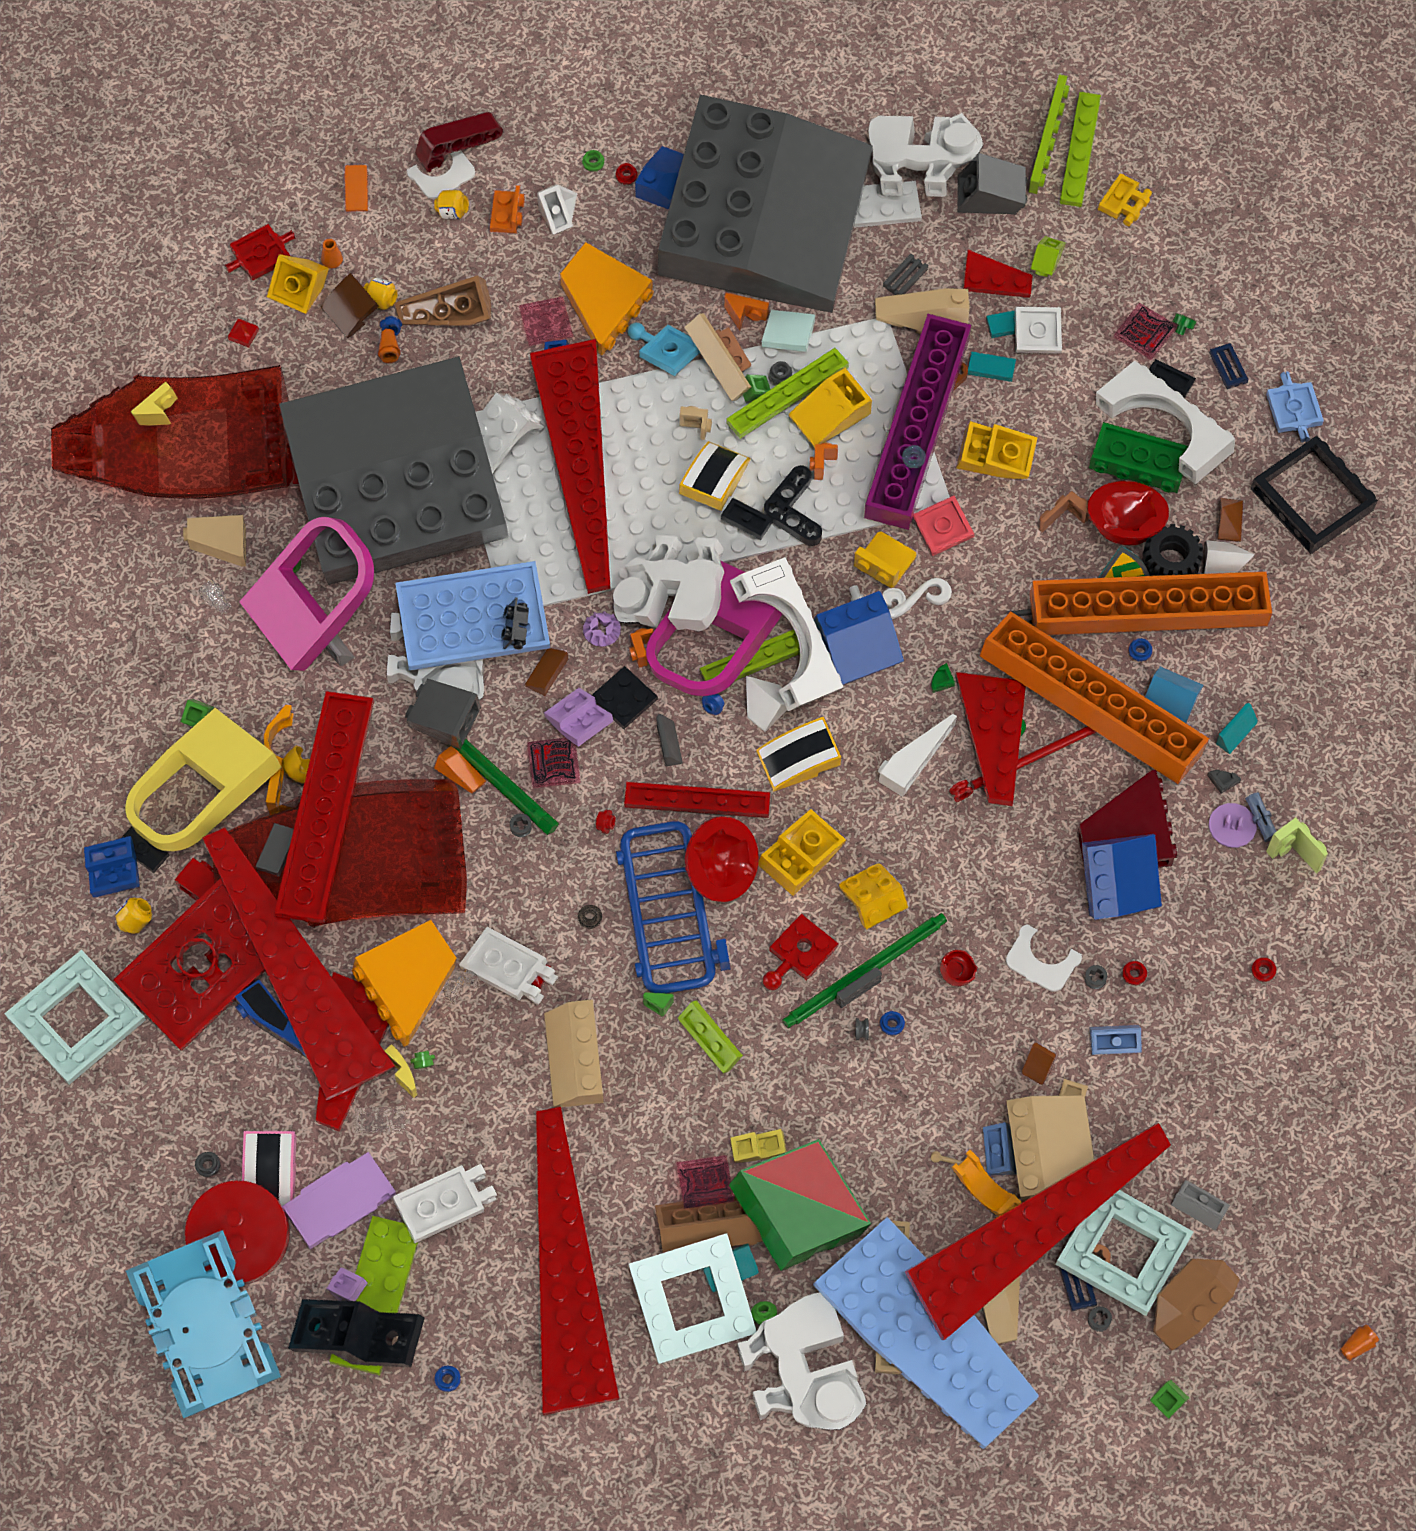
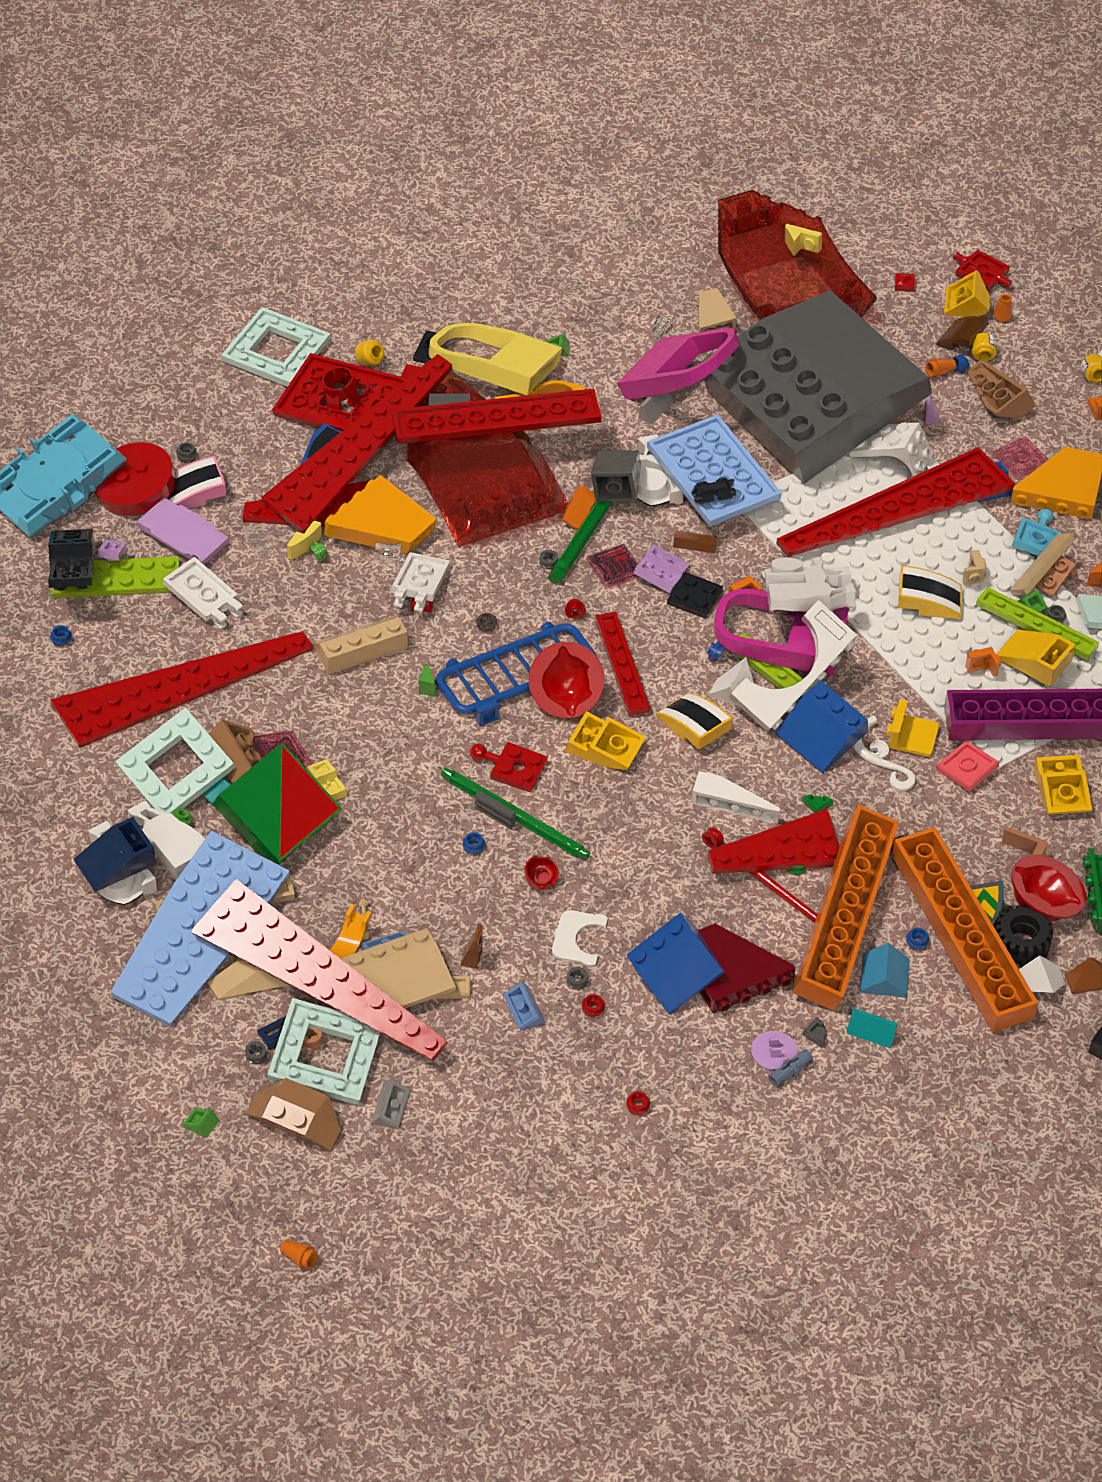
camera: 70 degrees right, 15 degrees down
(112, 866) = (406, 333): blue slope -> none
(356, 188) = (1077, 310): orange slope -> none
(597, 637) = (746, 570): lavender gear -> none
(668, 741) = (667, 630): dark grey slope -> none
(710, 1036) = (410, 723): lime plate -> none
(746, 518) = (899, 626): black plate -> none
(785, 505) = (927, 649): black beam -> none
(821, 1393) = (116, 855): none -> dark blue slope
(861, 1029) = (458, 822): dark grey bush -> none
(874, 895) = (584, 800): yellow bracket -> none
(913, 451) = (1010, 708): clear light blue plate -> none
(1298, 836) = (771, 1086): yellowish green bracket -> none

